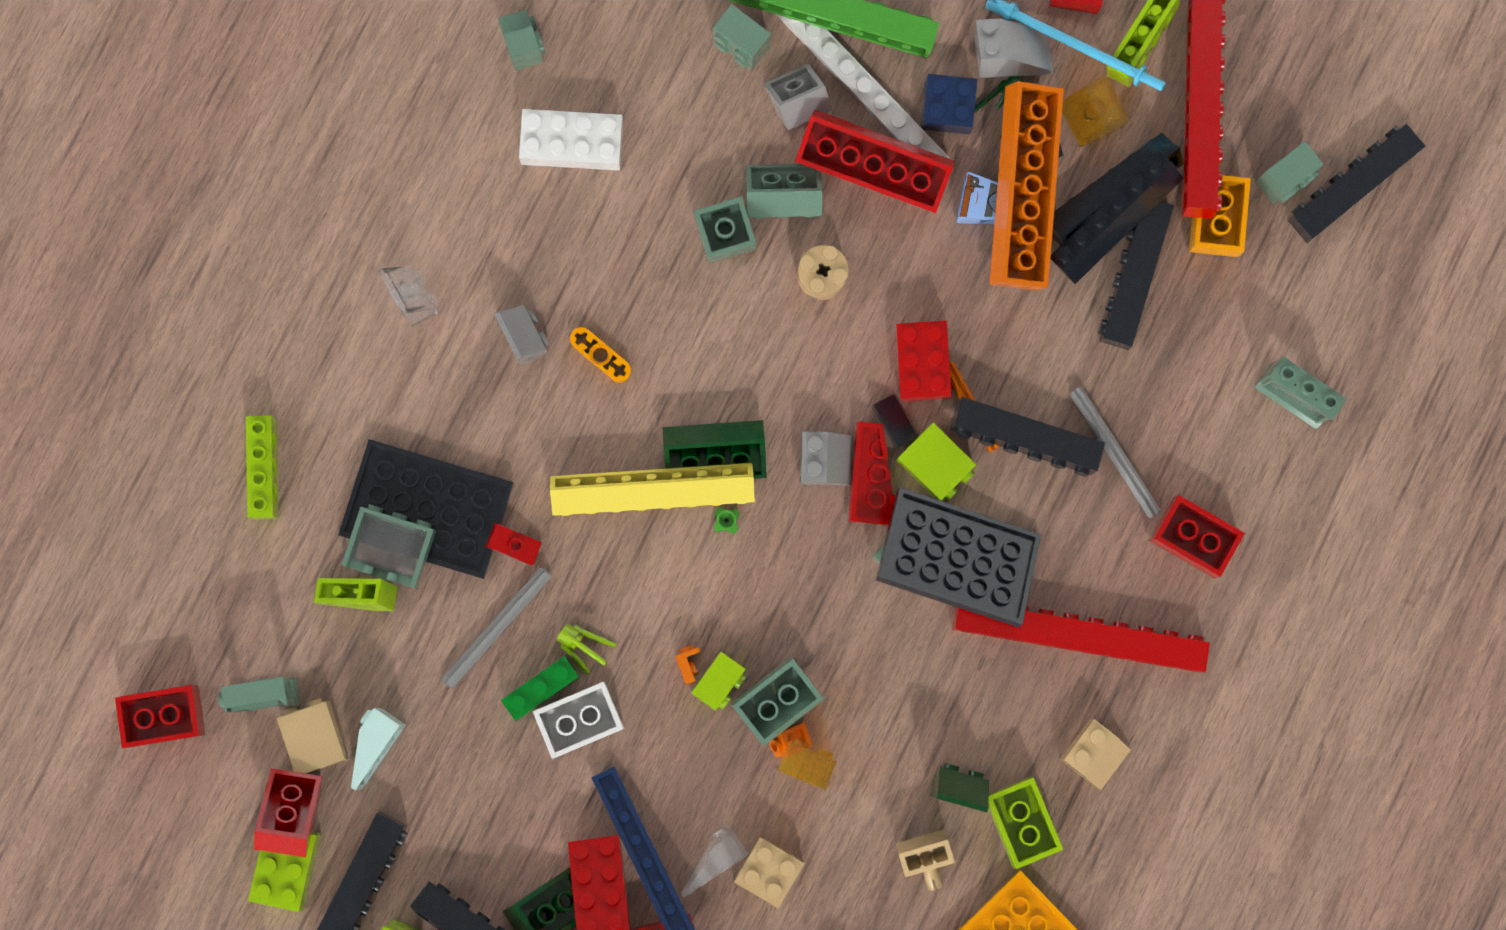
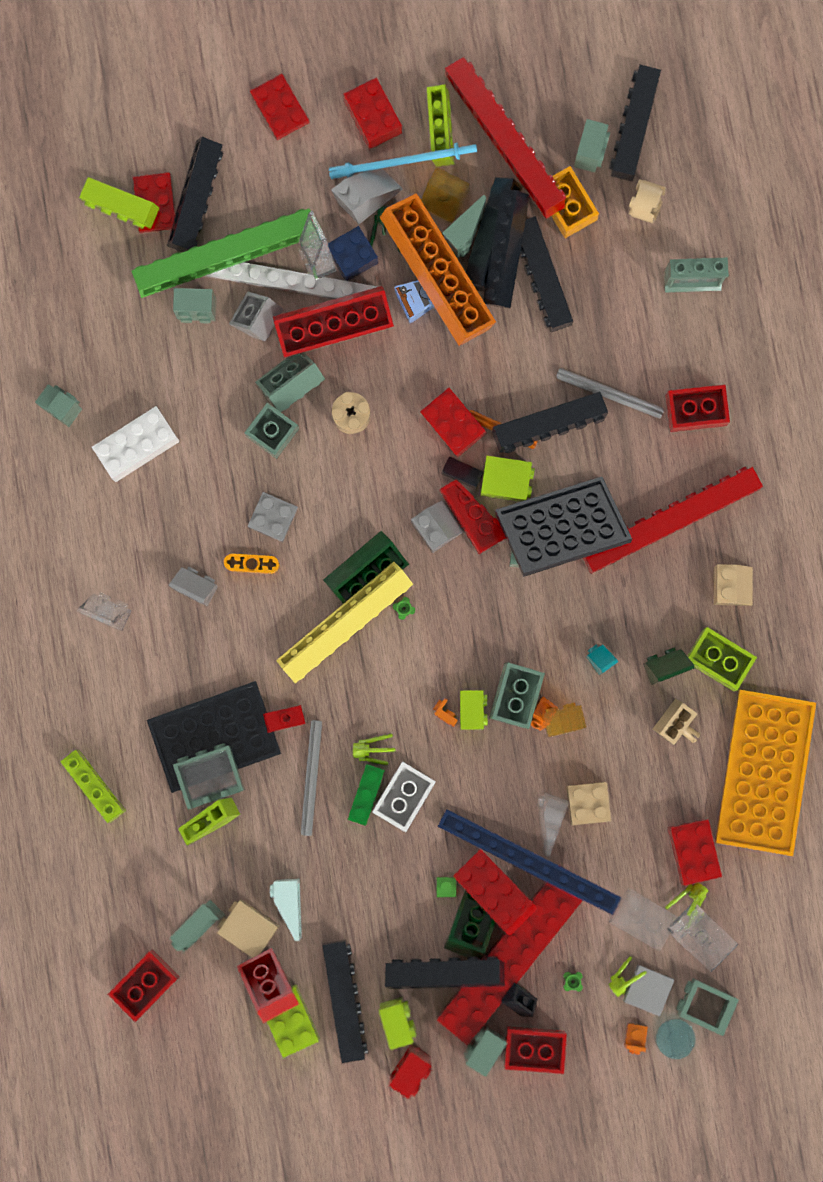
camera: 25 degrees left, 0 degrees up
(553, 848) = (446, 887): none -> bright green plate
(659, 322) = (272, 517): none -> light grey plate
(896, 728) = (601, 658): none -> teal slope
(912, 71) = (315, 249): none -> clear slope
(1084, 165) = (463, 230): none -> sand green slope
(1306, 276) = (647, 201): none -> tan brick

